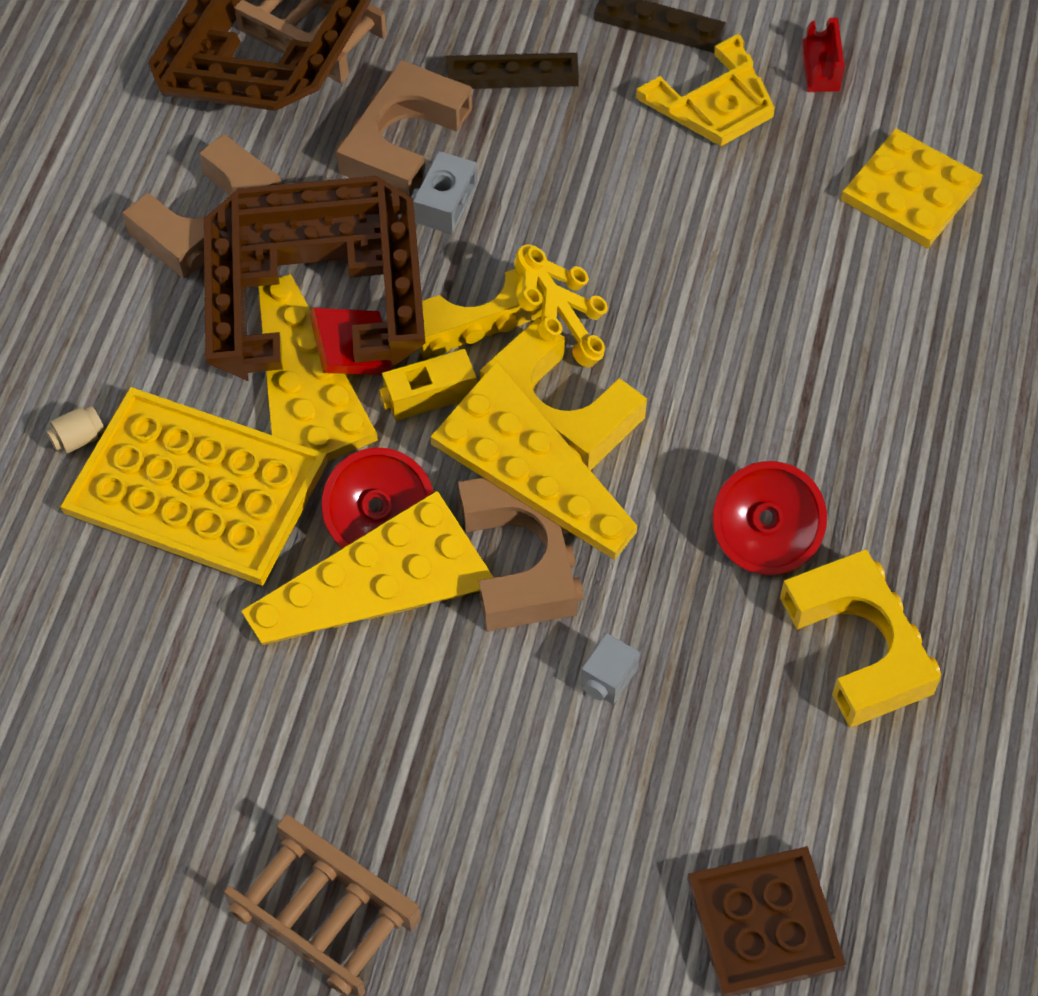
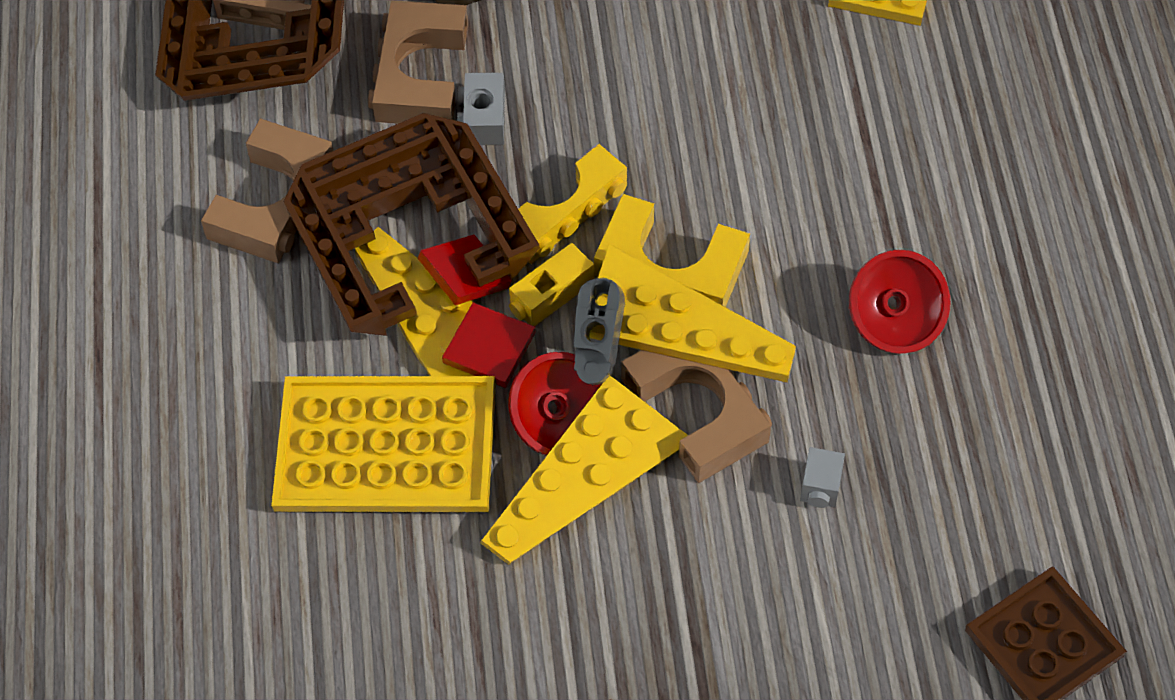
camera: 20 degrees left, 0 degrees up
(75, 429) = (250, 432): tan brick -> none
(338, 421) = (489, 344): none -> red tile
(428, 469) = (596, 359): none -> dark grey piece
(534, 268) = (600, 149): yellow plant -> none
(859, 588) = (999, 336): yellow arch -> none

